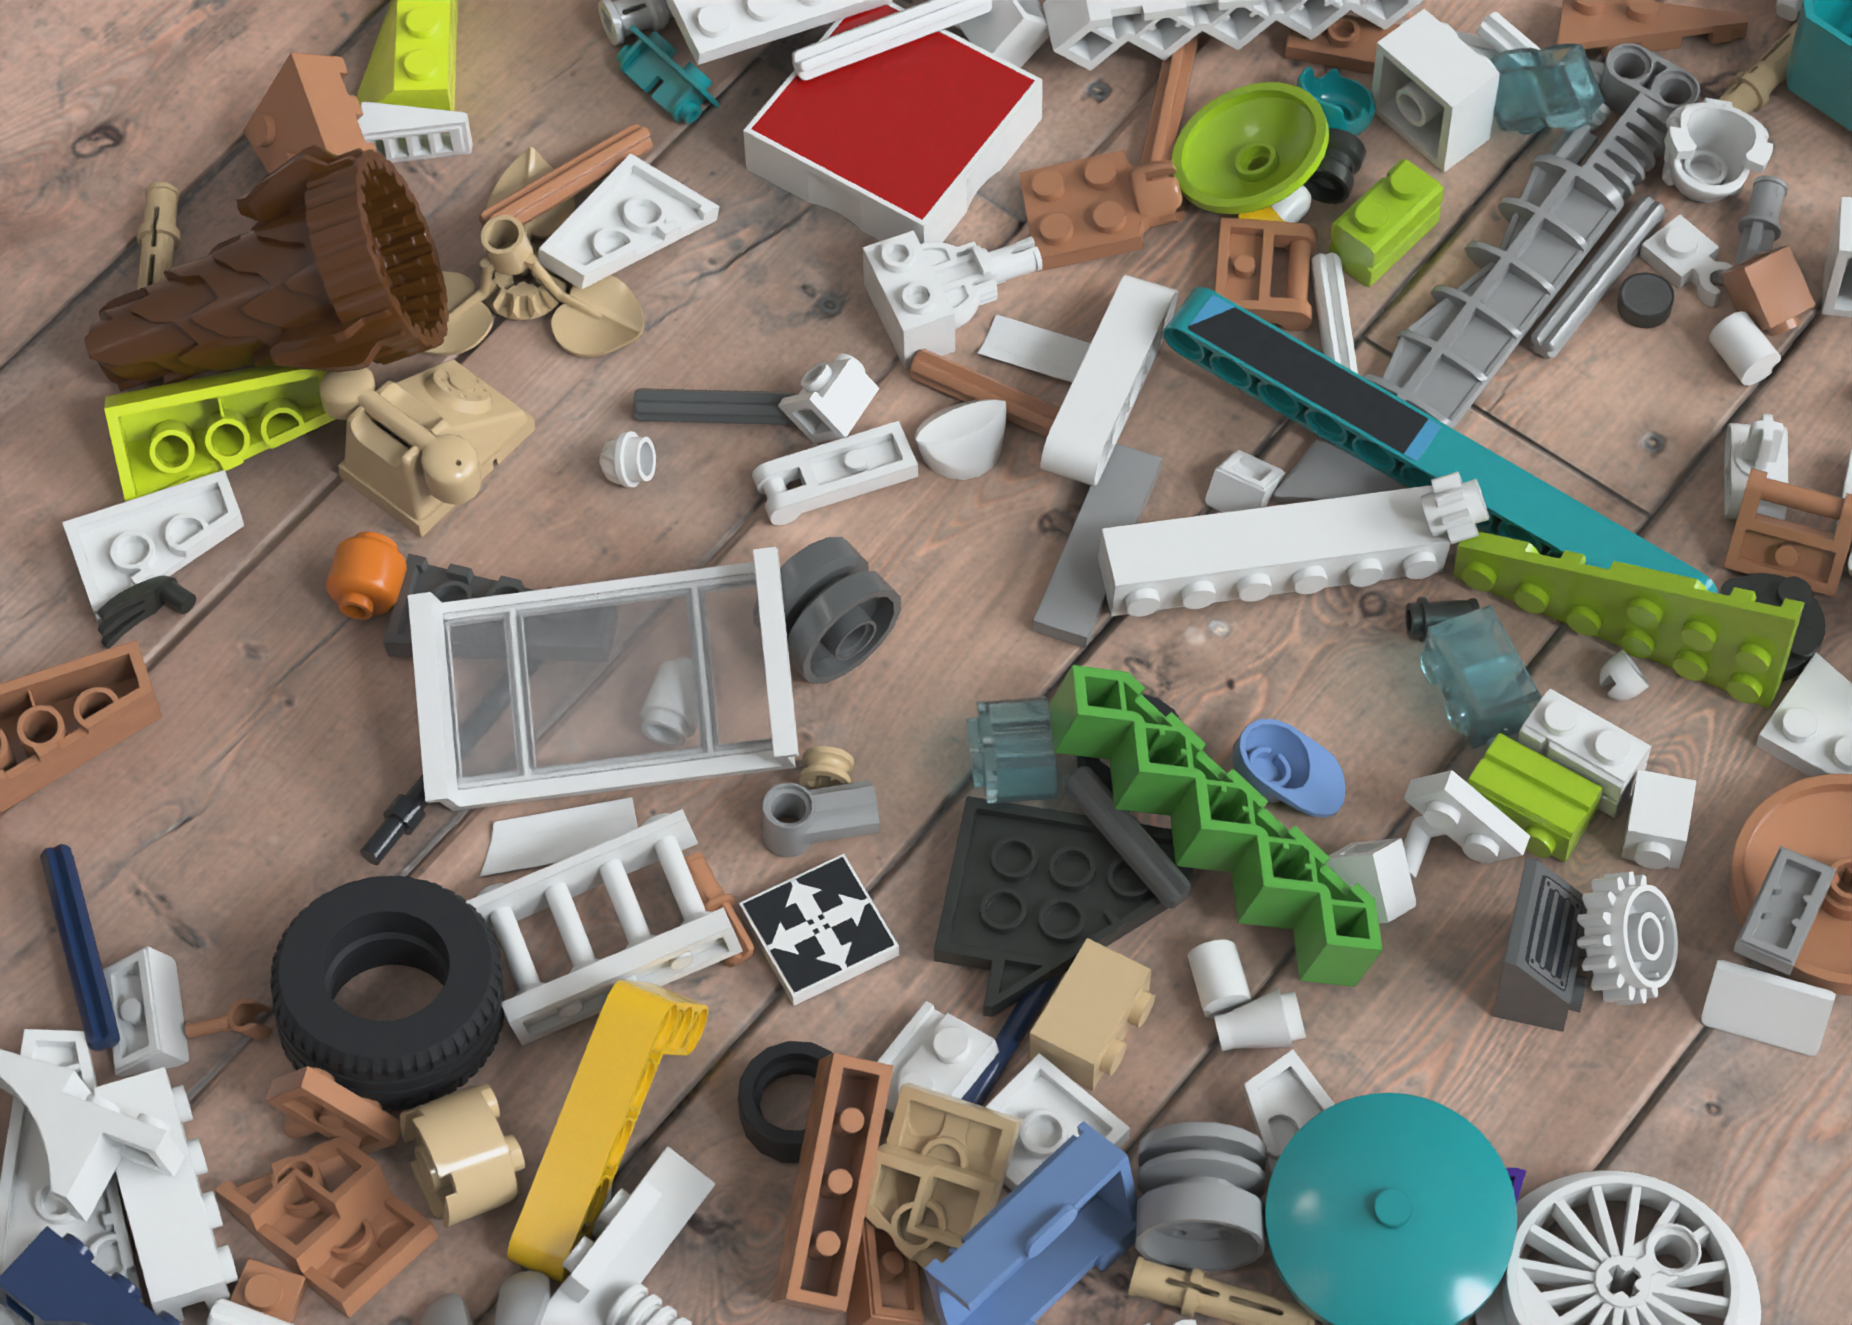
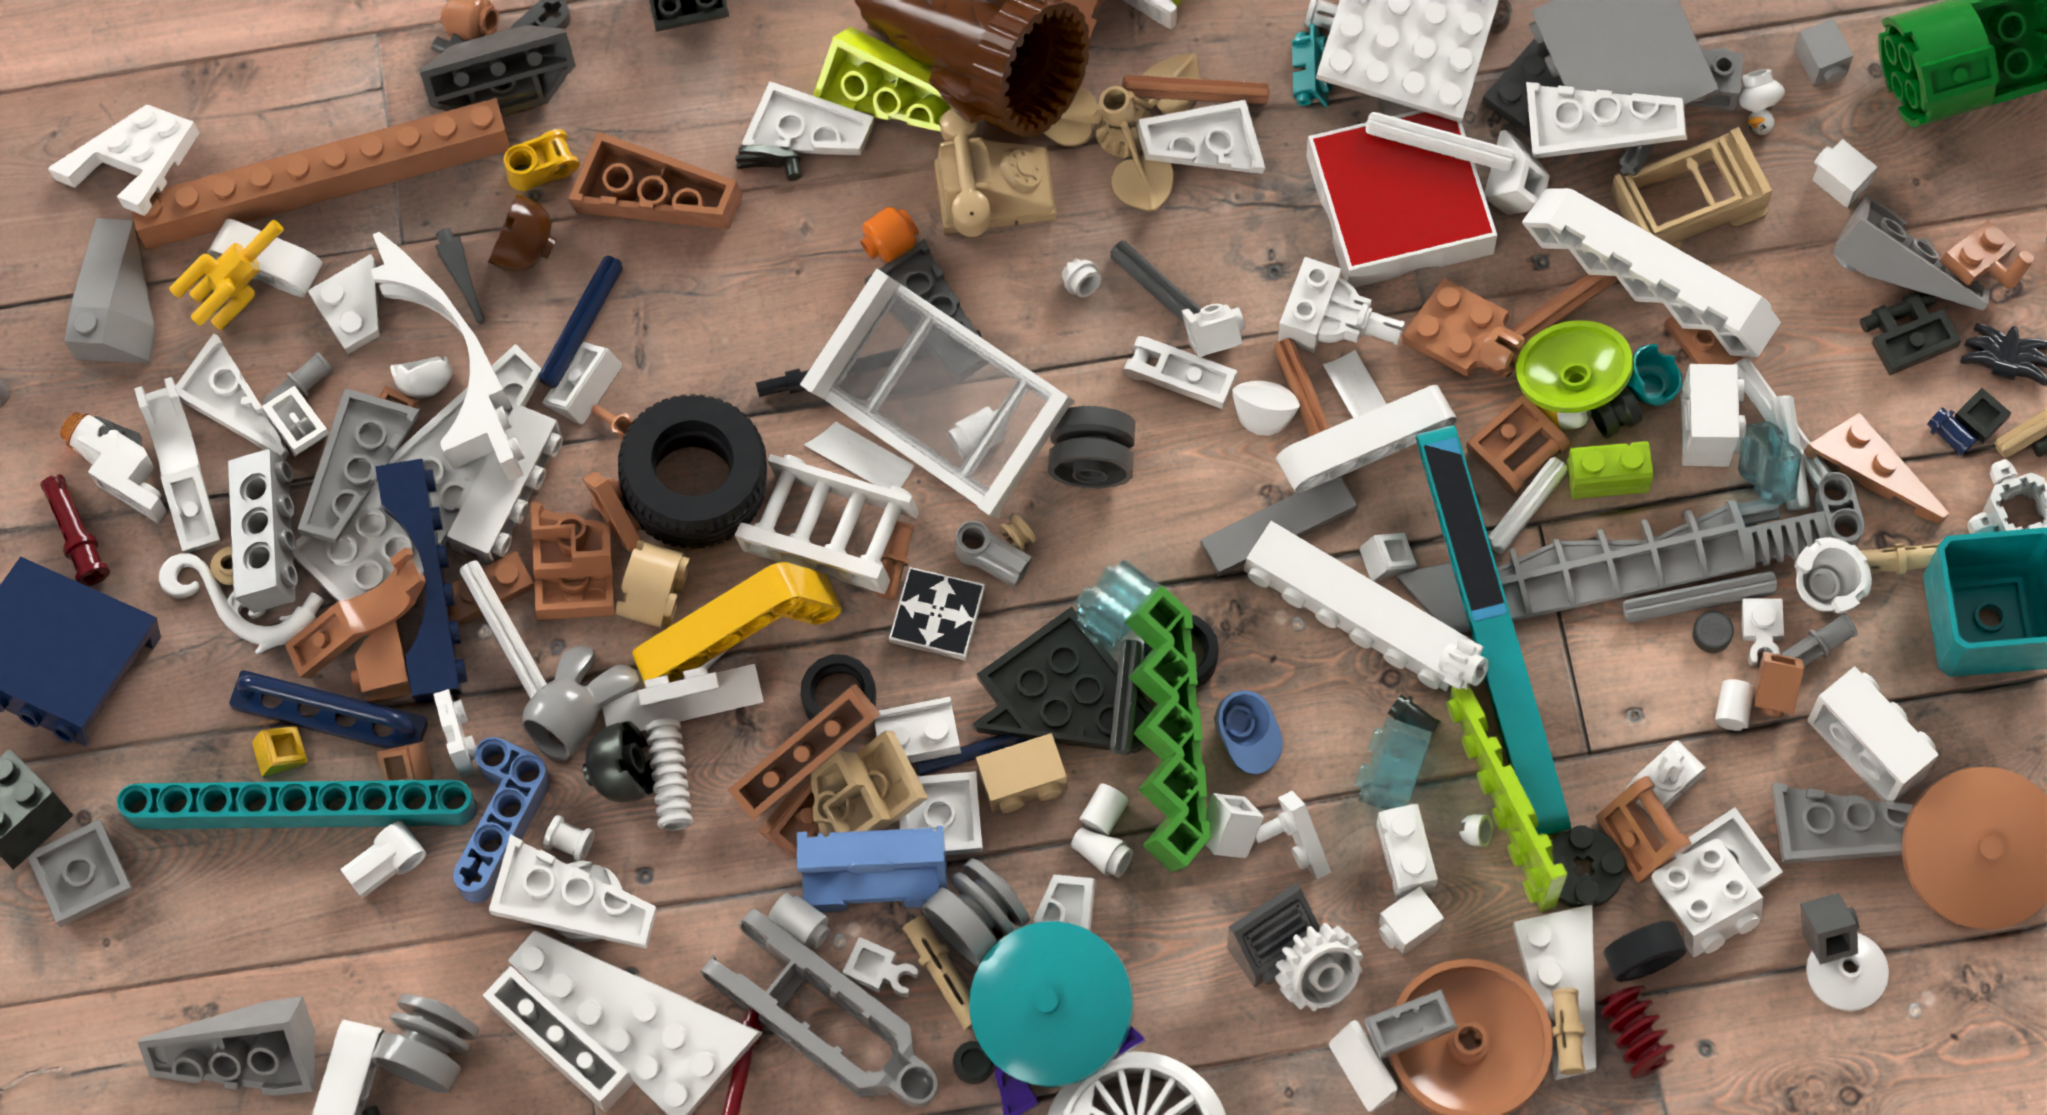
camera: 45 degrees right, 10 degrees up
(1537, 796) = (1356, 853): lime brick -> none

